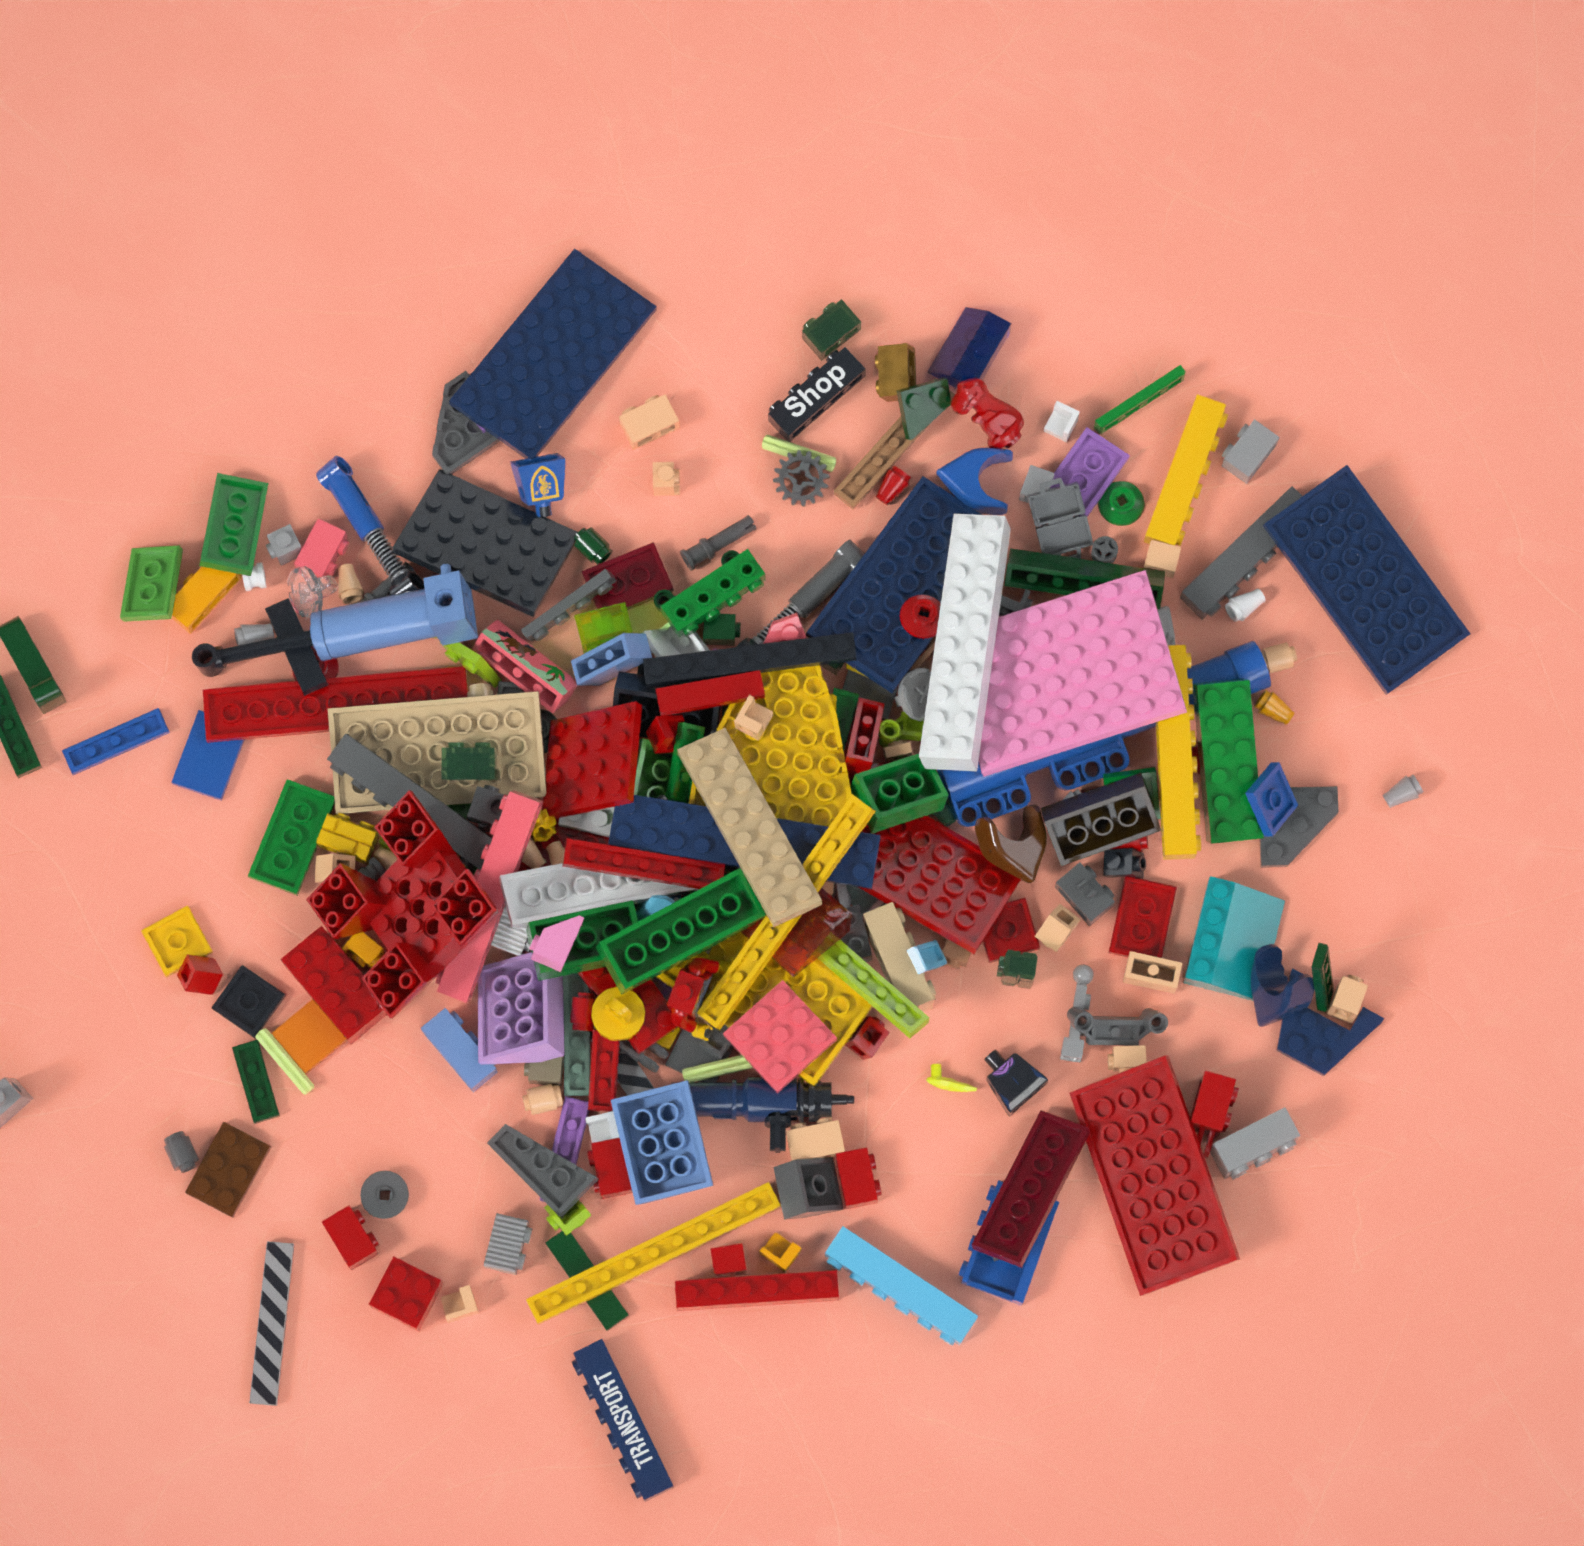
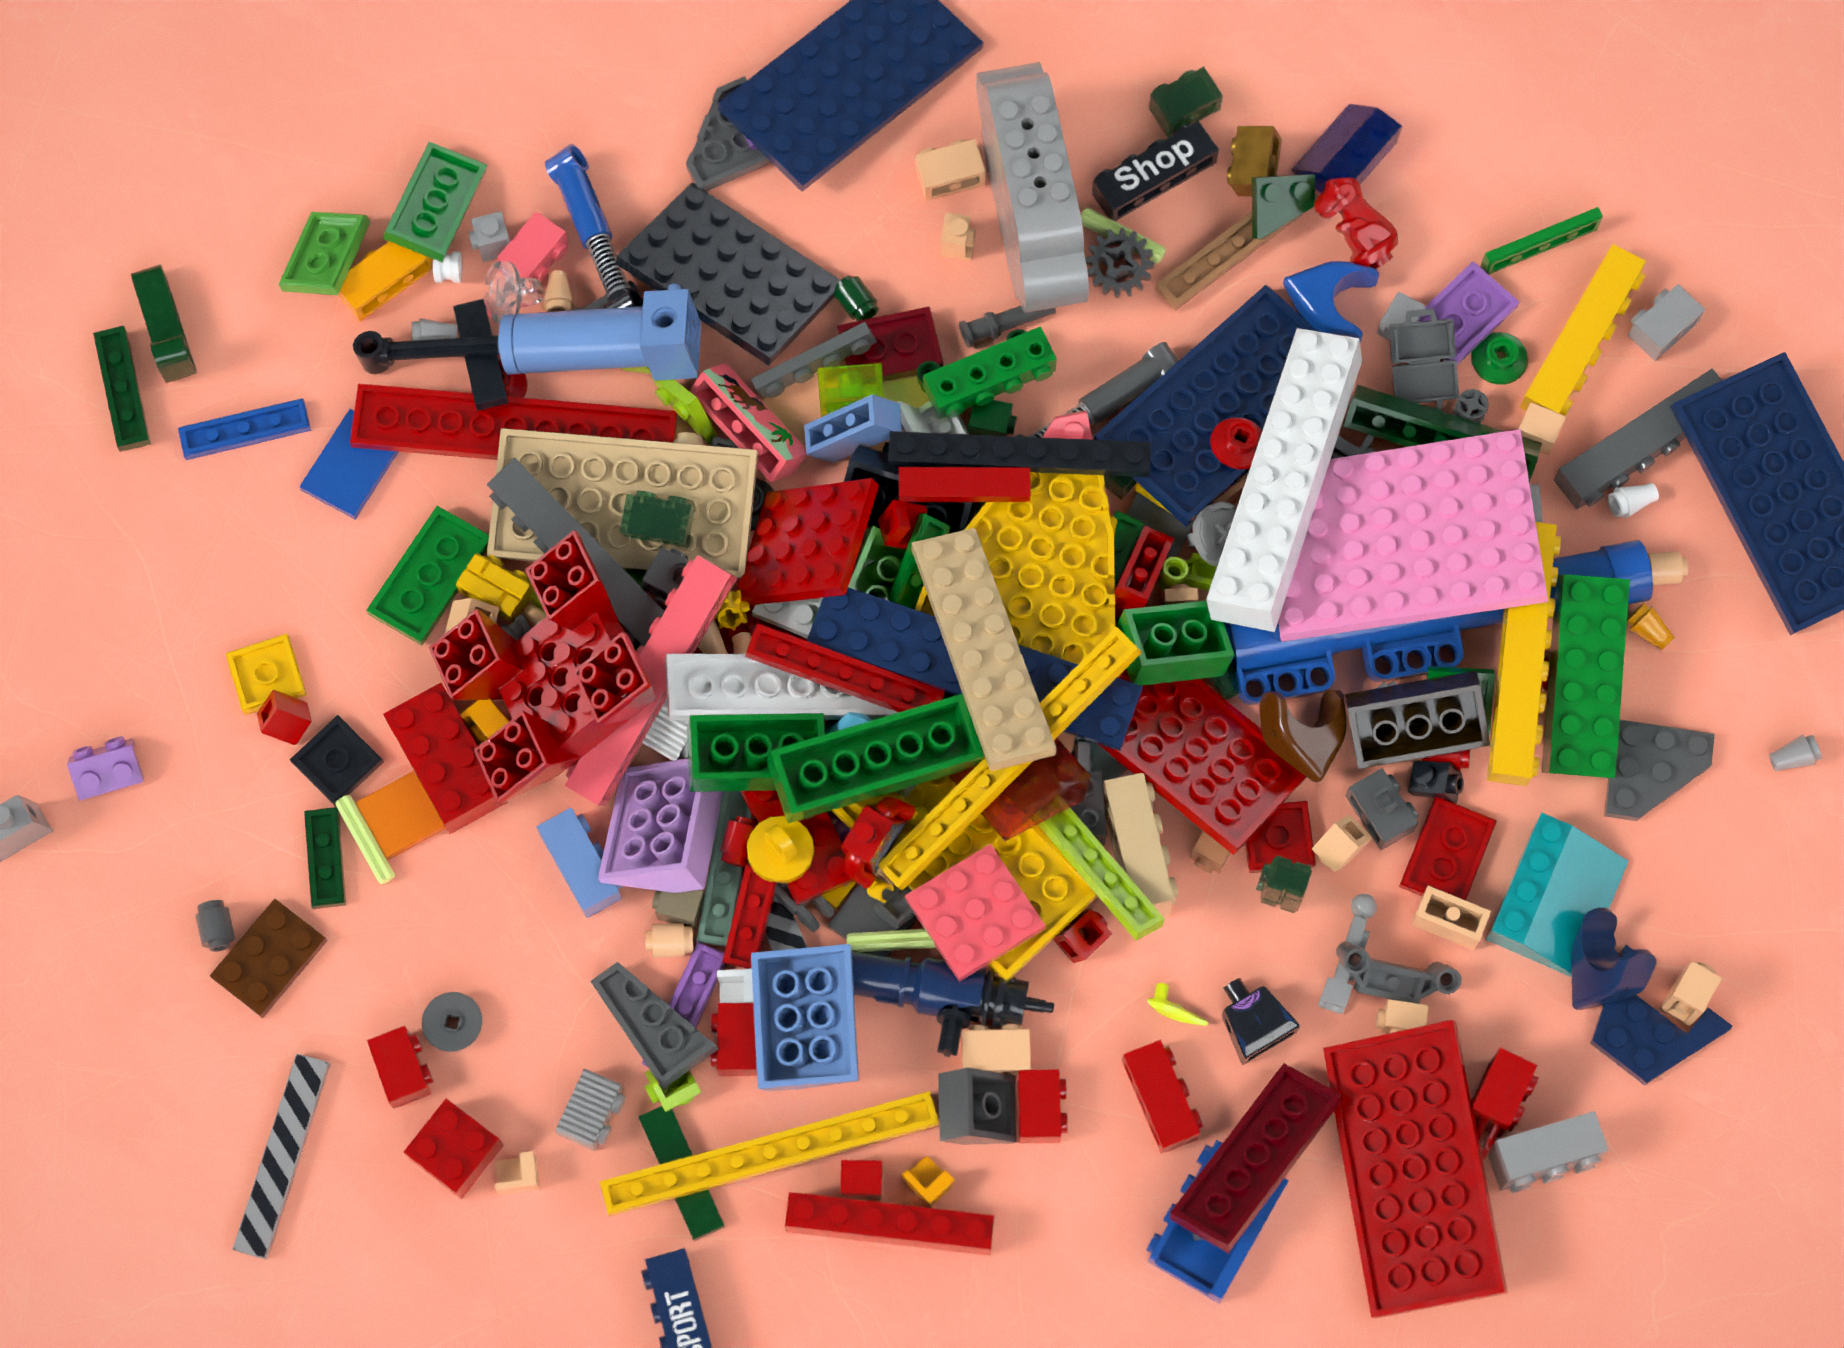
camera: 10 degrees right, 5 degrees down
(64, 1040) = (104, 768): none -> medium lavender bracket
(540, 481) = (807, 213): blue torso -> none
(555, 943) = (718, 745): bright pink slope -> none
(720, 433) = (1032, 187): none -> light grey brick
(753, 718) = (1010, 522): light nougat panel -> none
(892, 485) = (1228, 289): red cone -> none
(901, 1286) = (1071, 1250): medium azure brick -> none
(927, 956) = (1174, 847): medium azure tile -> none
(950, 1152) = (1162, 1096): none -> red brick
(1062, 421) = (1444, 250): white panel -> none
(1271, 799) = (1633, 731): blue plate -> none
(1322, 977) = (1666, 958): dark green tile -> none

